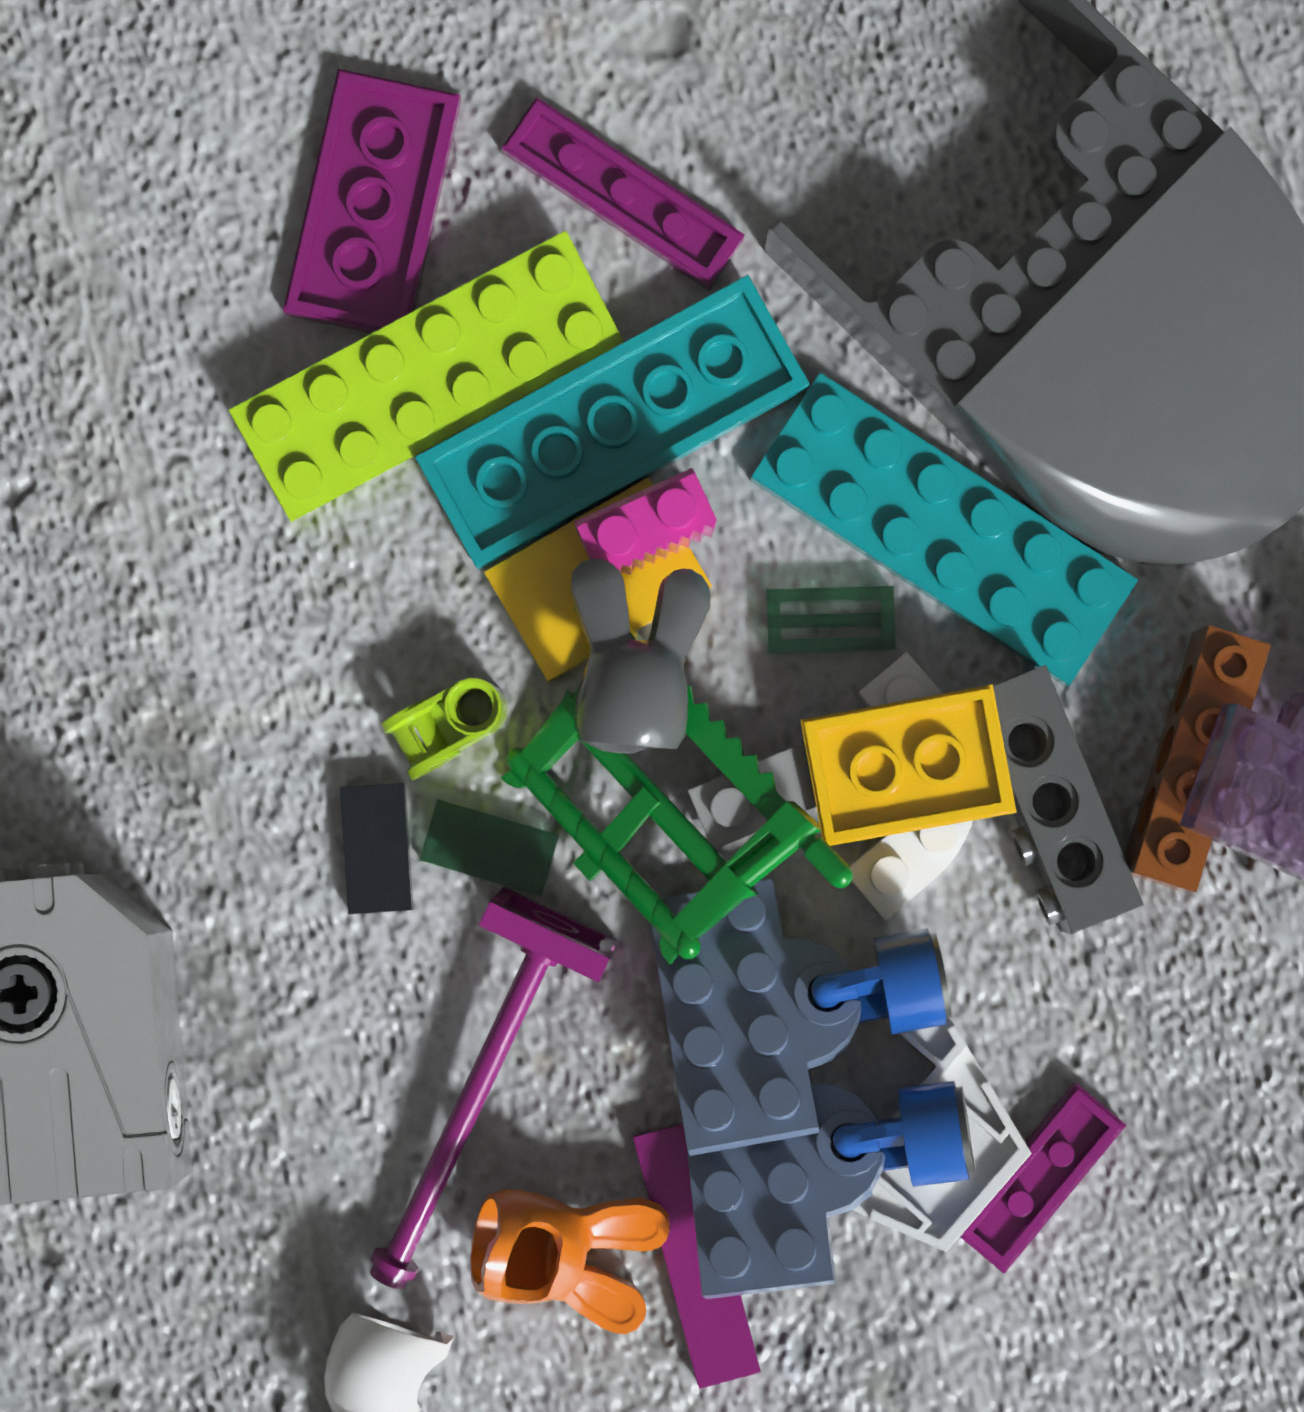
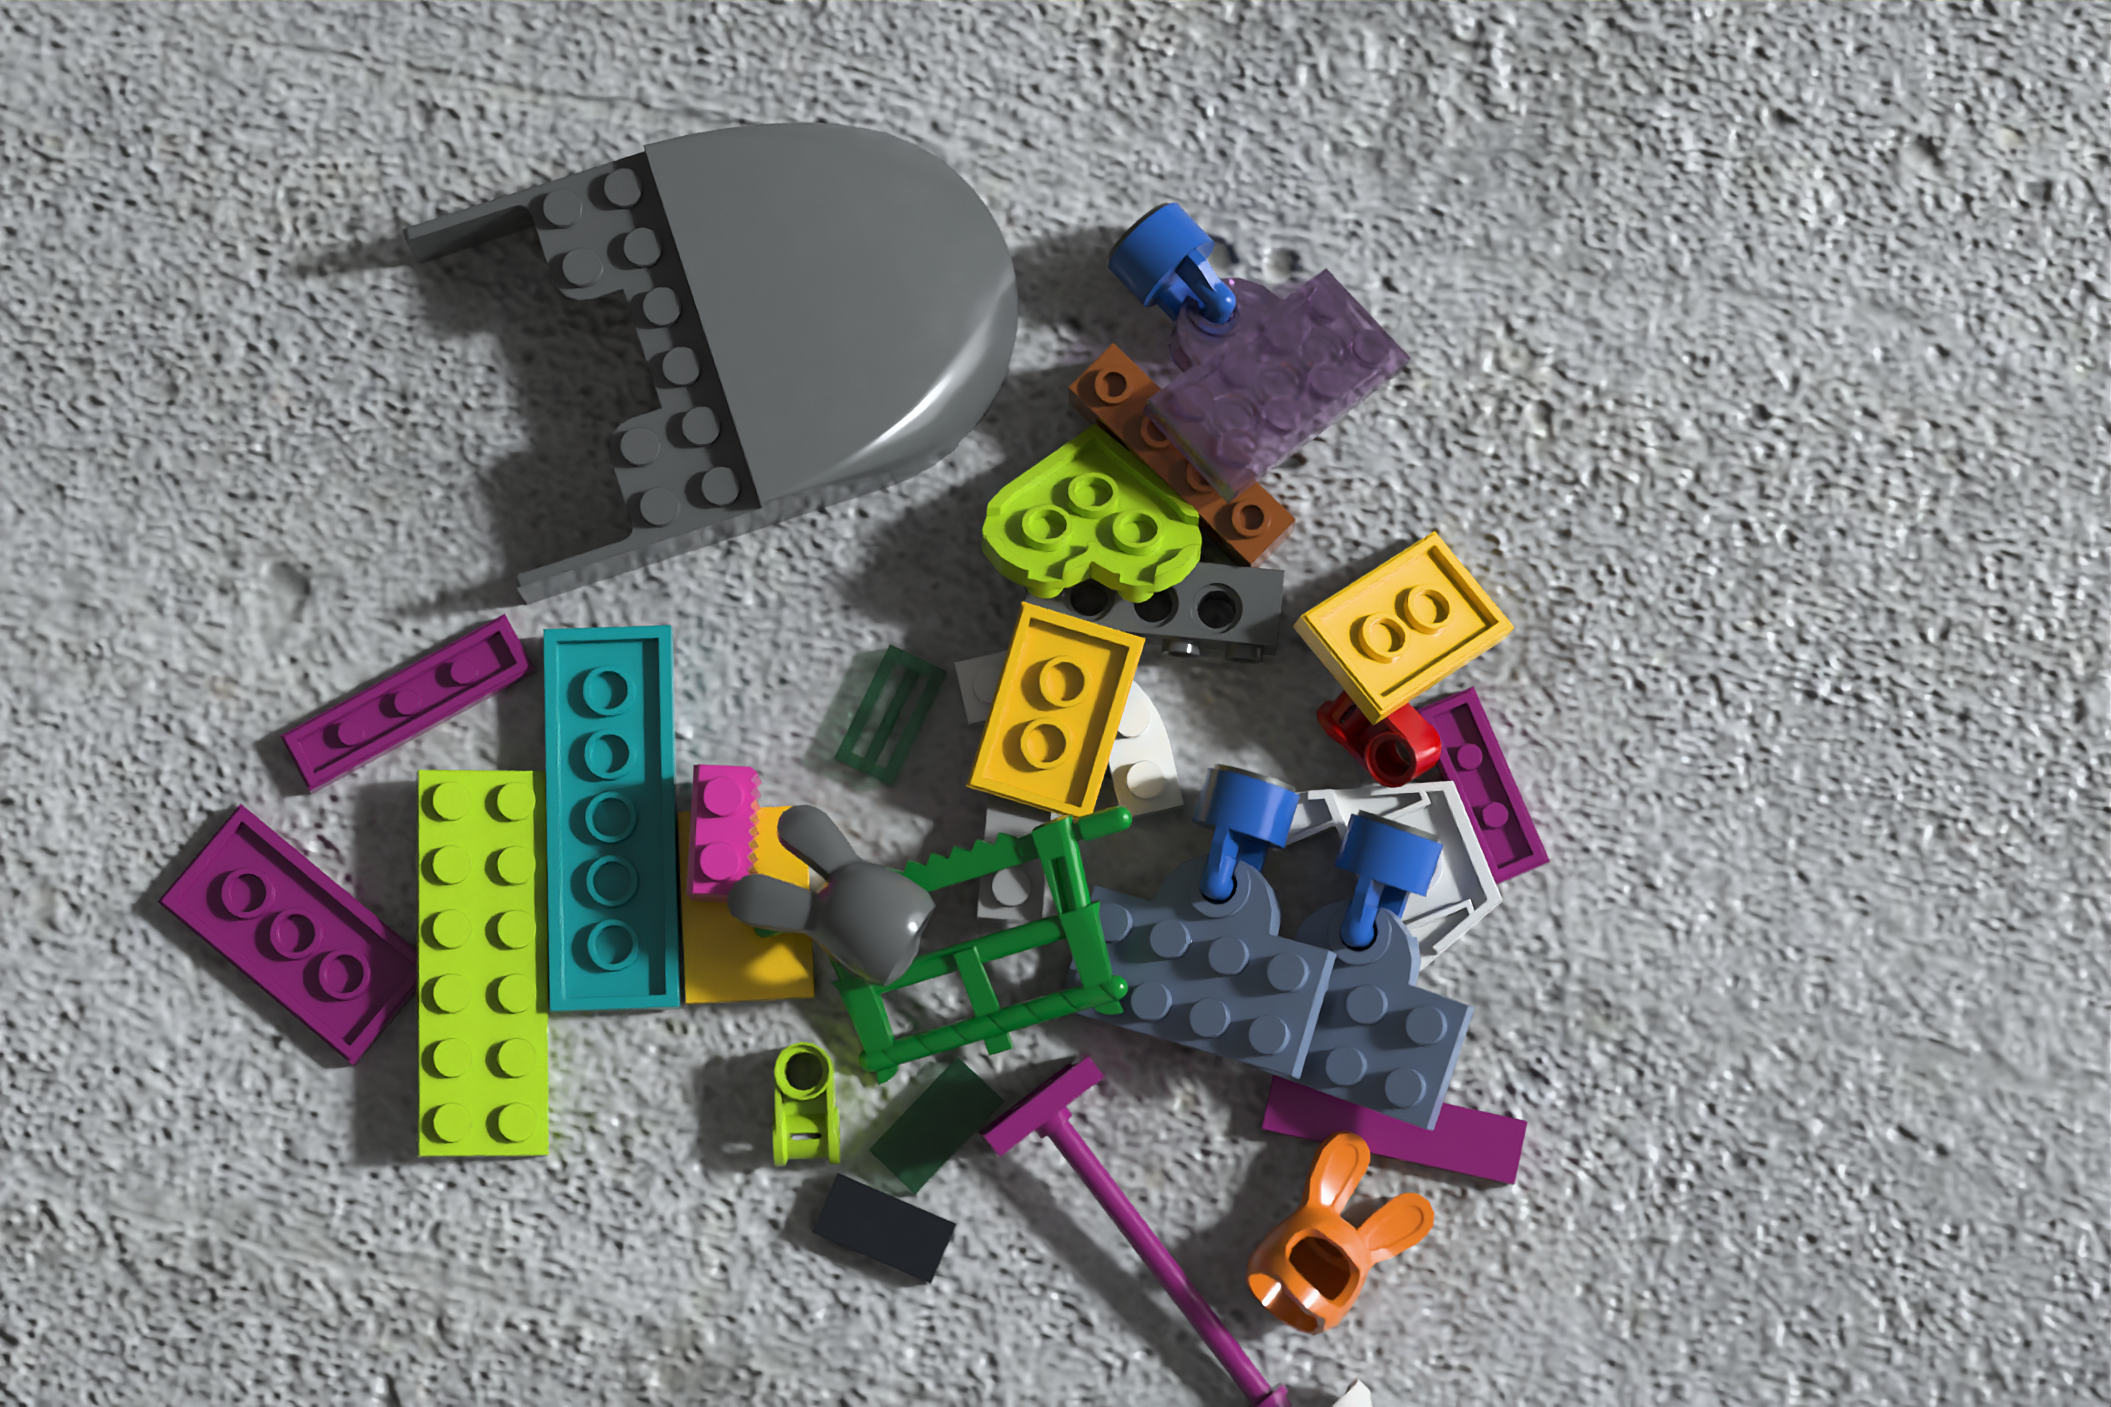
camera: 60 degrees left, 5 degrees down
(943, 530) = (846, 580): teal plate -> none
(1047, 1058) = (1375, 744): none -> red piece
(1102, 707) = (1093, 517): none -> lime plate
(1147, 1038) = (1403, 627): none -> yellow tile

